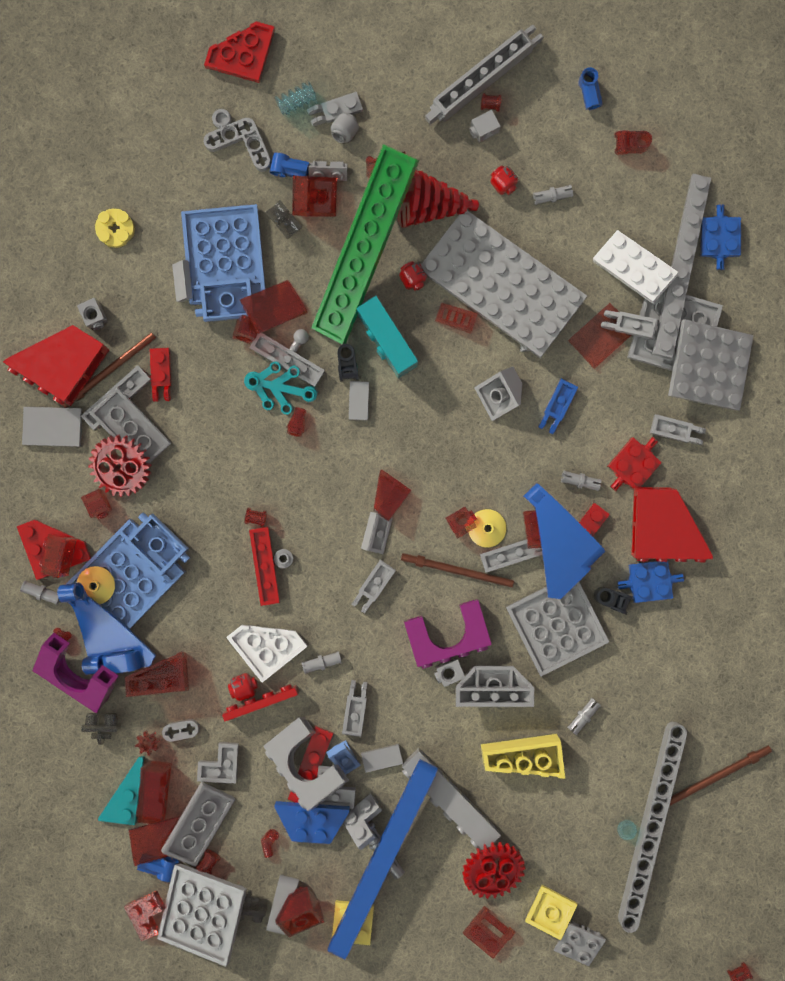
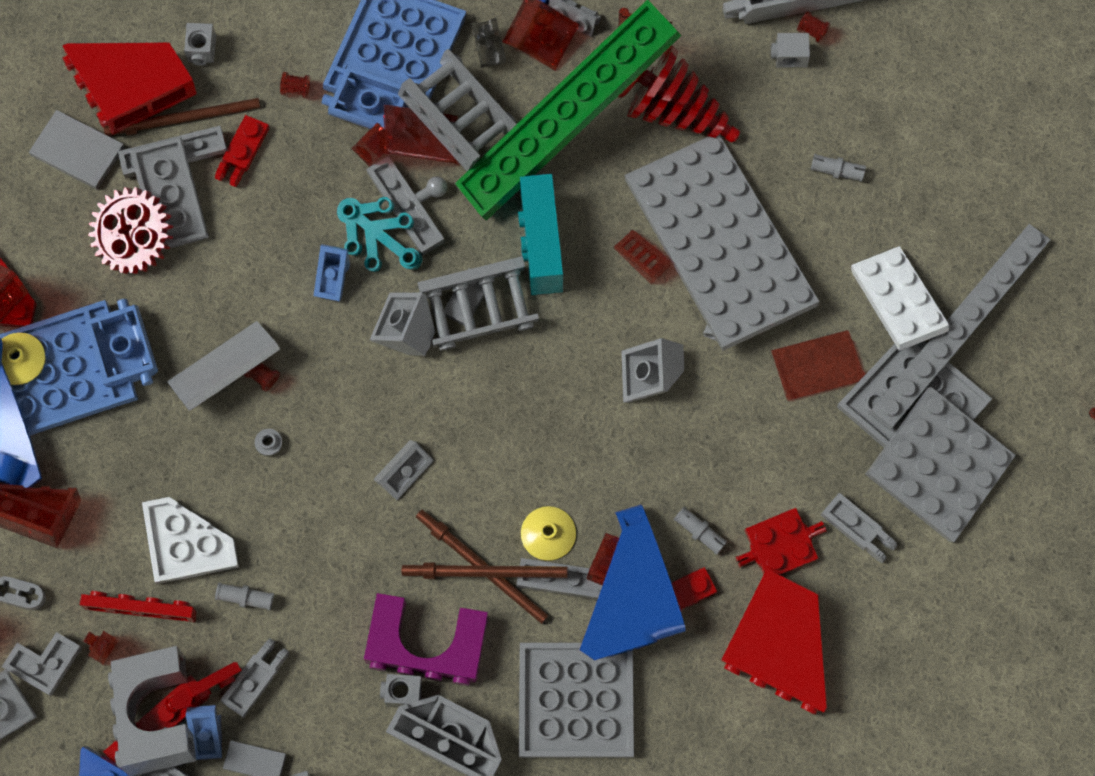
camera: 25 degrees right, 15 degrees down
(97, 504) = (76, 263): clear red brick -> none
(171, 311) = (295, 85): none -> clear red bush
(182, 281) = (328, 56): light grey tile -> none
(229, 525) = (223, 365): none -> light grey tile
(242, 687) = (127, 576): red head -> none
(250, 738) = (100, 646): none -> clear red plate
(264, 429) = (331, 272): none -> medium blue slope
(264, 566) = (239, 439): red plate -> none
(289, 297) = (448, 132): none -> light grey fence
(296, 425) = (374, 287): clear red cone -> none
(327, 734) = (201, 688): none -> red hinge
(329, 439) = (405, 324): none -> light grey slope
(347, 364) = (475, 248): black piece -> none
(351, 396) = (485, 277): none -> light grey fence
(374, 584) = (364, 531): light grey hinge -> none
(389, 495) = (443, 429): clear red wing -> none
(413, 276) = (612, 180): red head -> none
(428, 589) = (430, 570): none -> copper bar
(460, 530) = (515, 496): clear red brick -> none
(504, 180) = (784, 122): red head -> none
(558, 404) = (718, 421): blue hinge -> none
(590, 90) = (944, 67): blue piece -> none
(616, 600) = (668, 705): black piece -> none
(628, 142) = (966, 150): clear red piece -> none
(631, 324) = (860, 364): light grey hinge -> none
(650, 581) = (729, 706): blue plate -> none
(720, 237) = (1029, 316): blue plate -> none

